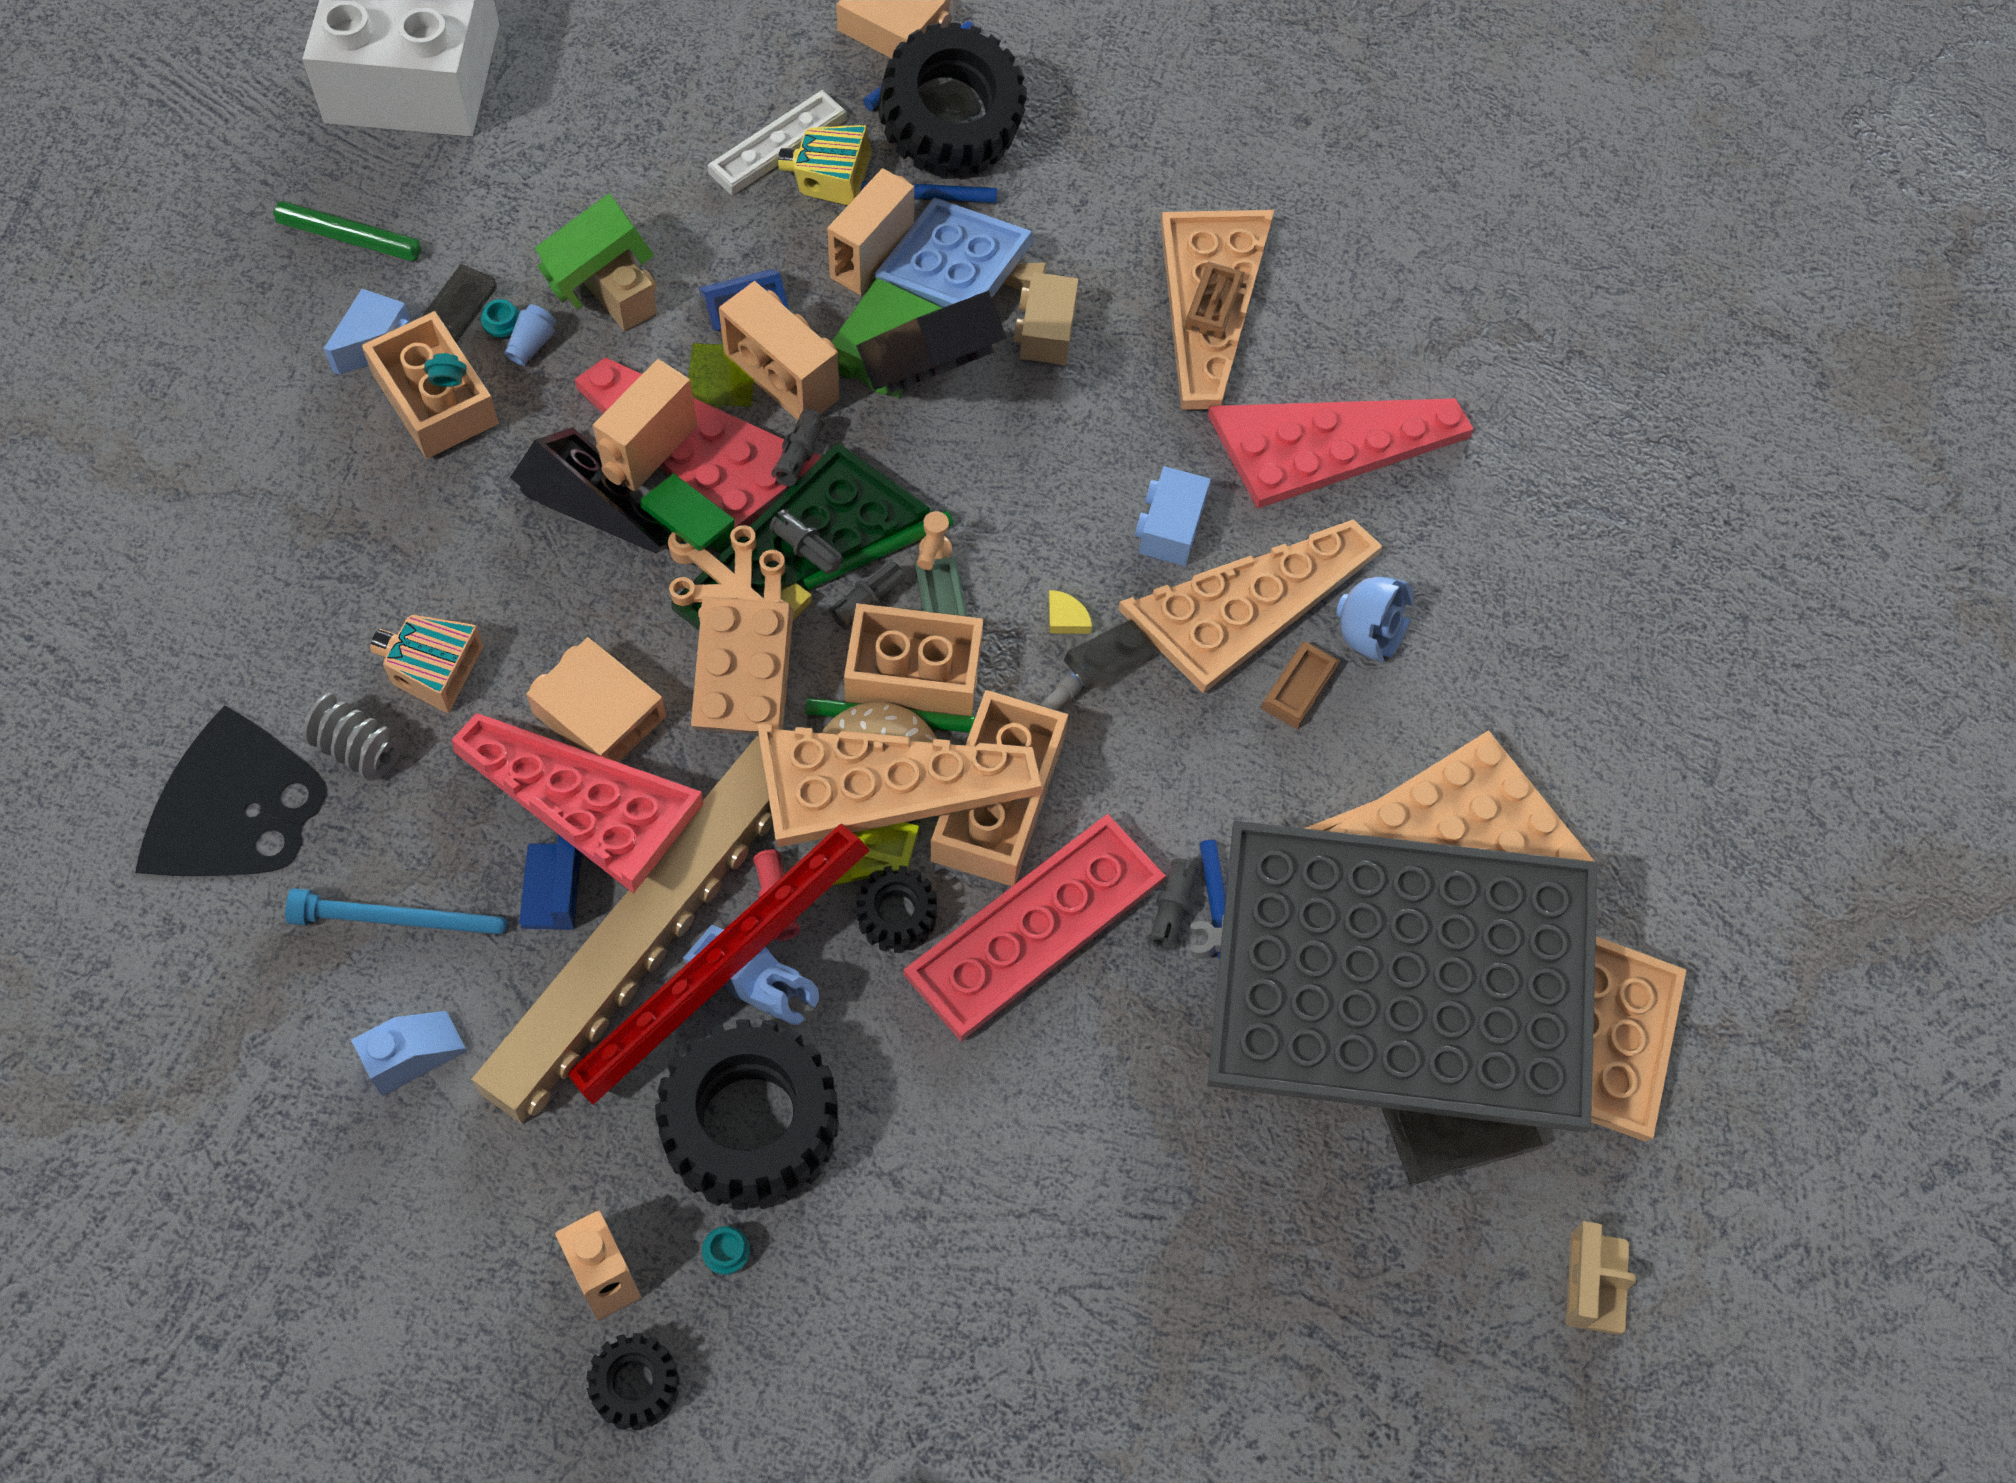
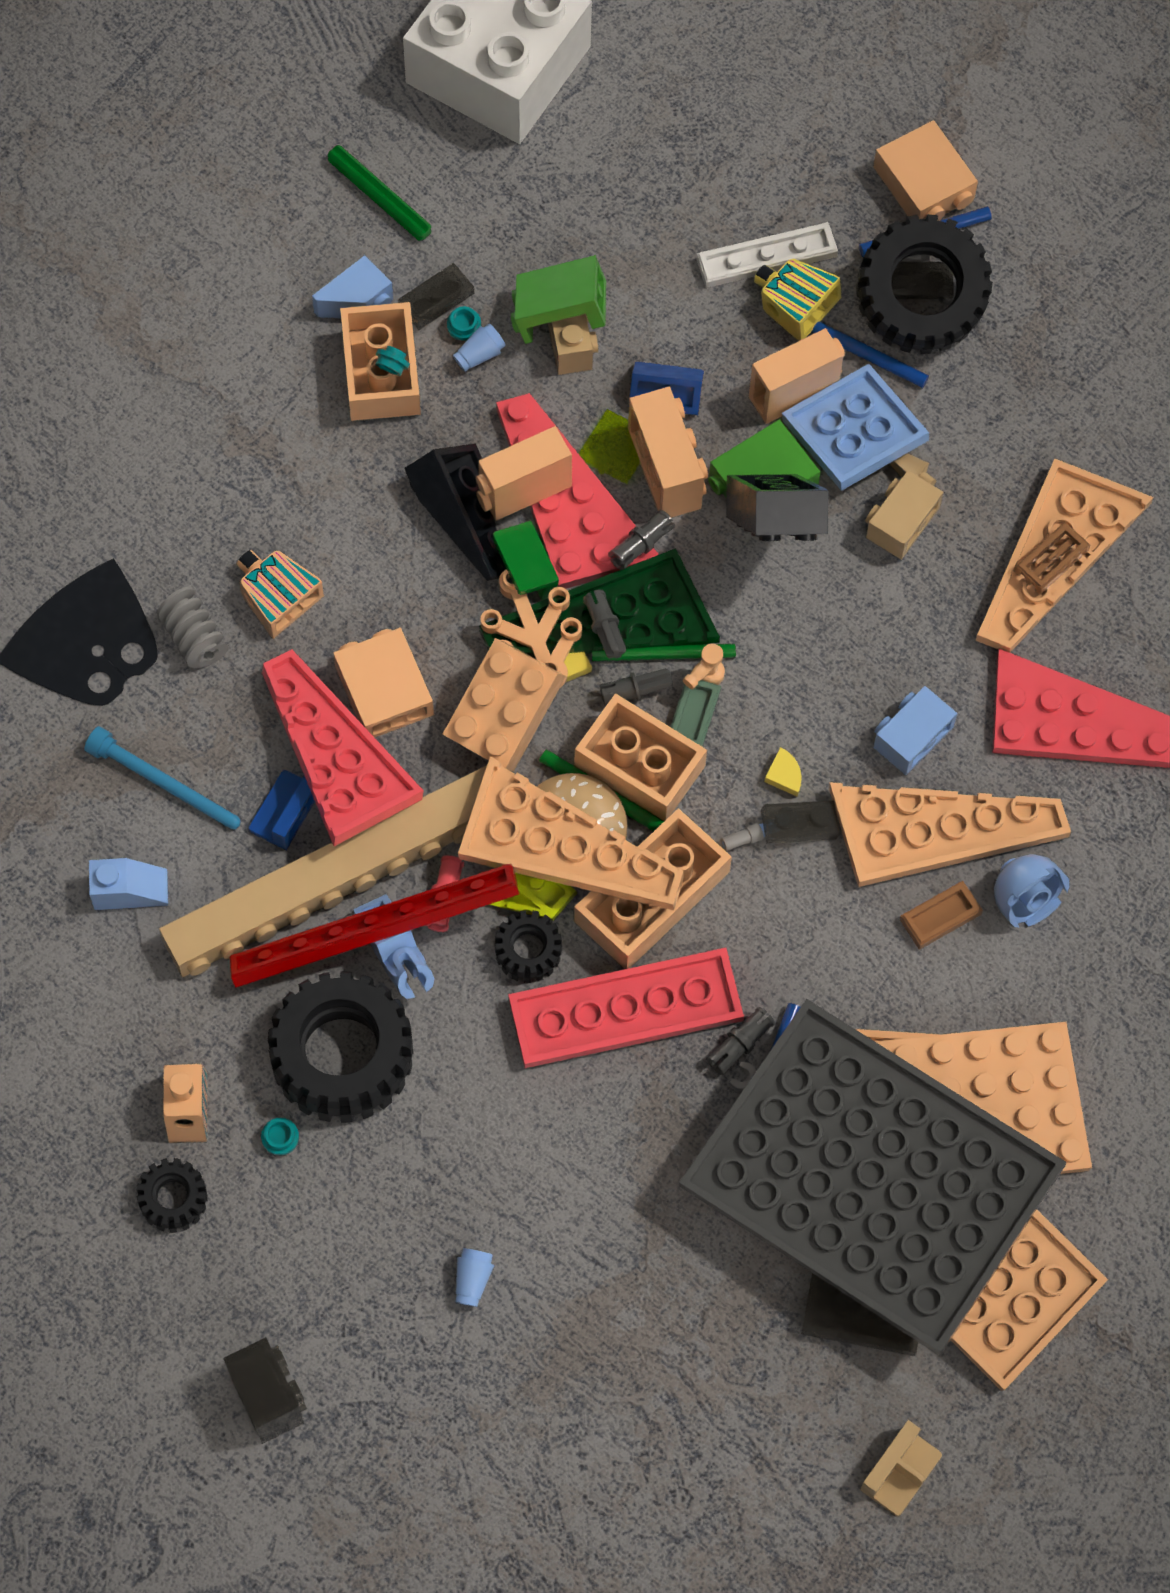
camera: 30 degrees right, 5 degrees up
(1027, 1301) = (472, 1276): none -> light blue cone

